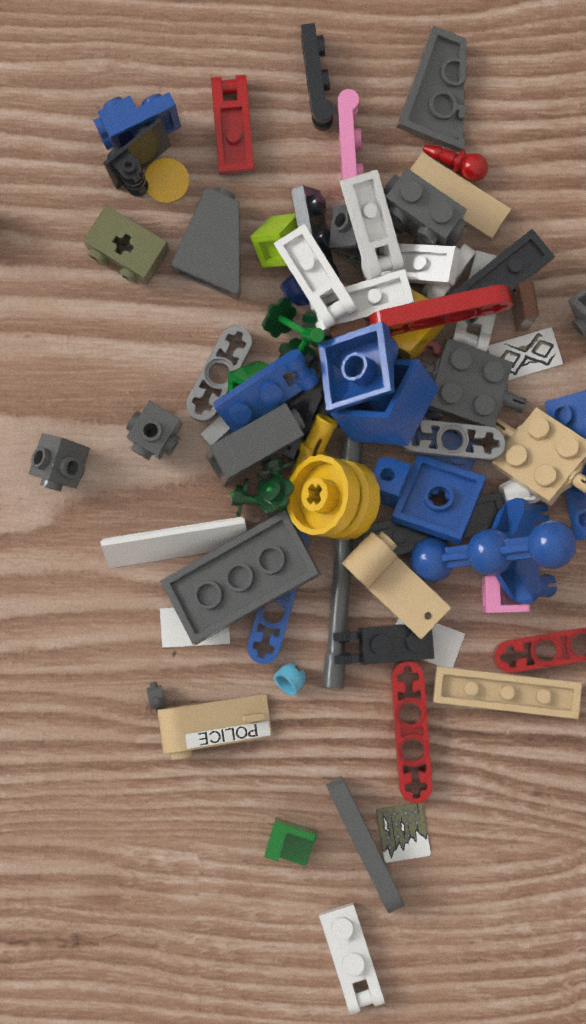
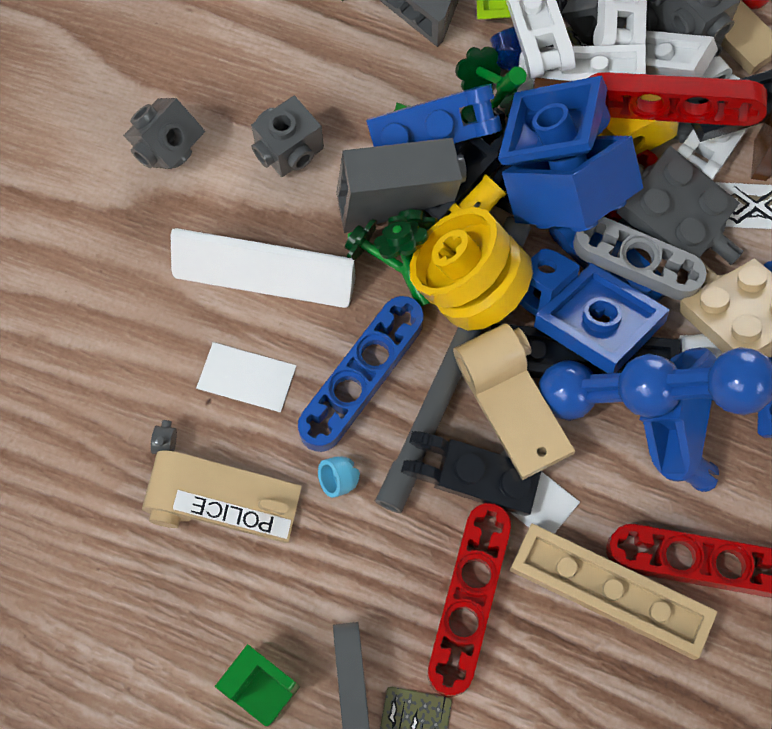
camera: 15 degrees right, 15 degrees down
(221, 346) = (391, 91): light grey beam -> none
(240, 577) = (323, 330): dark grey plate -> none
(496, 600) = (637, 472): bright pink panel -> none

